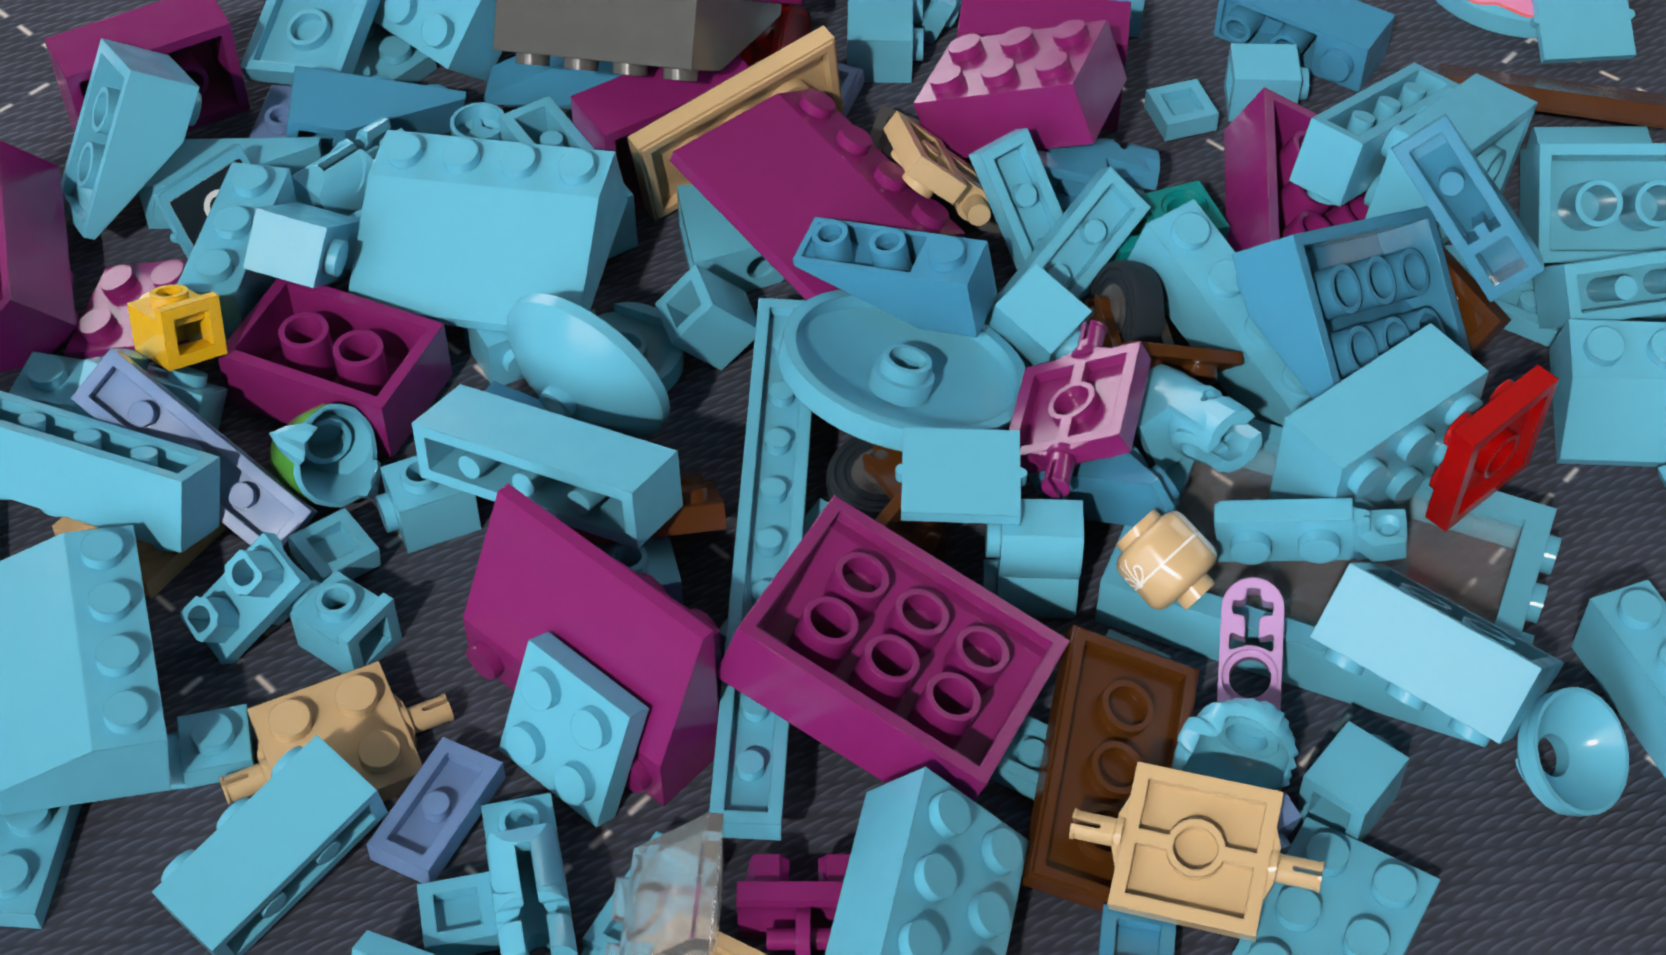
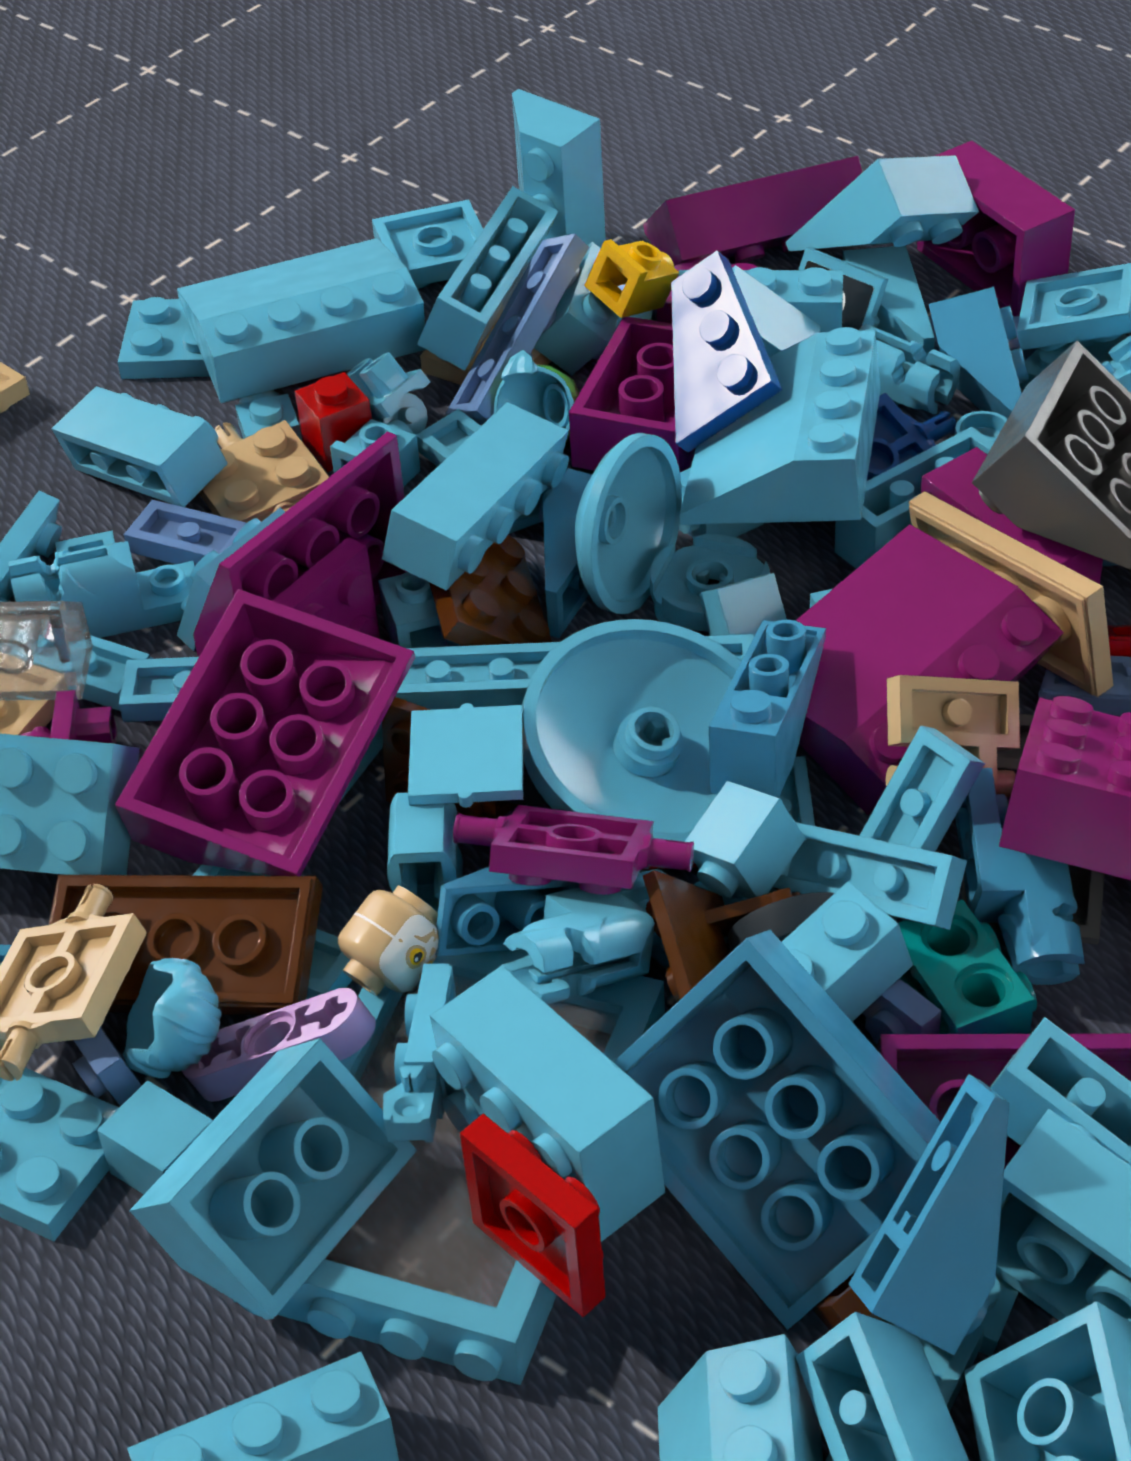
camera: 90 degrees right, 5 degrees down
(267, 652) = (330, 412): none -> red brick
(376, 246) = (716, 353): none -> wing
(1587, 747) = (144, 1343): medium azure piece -> none

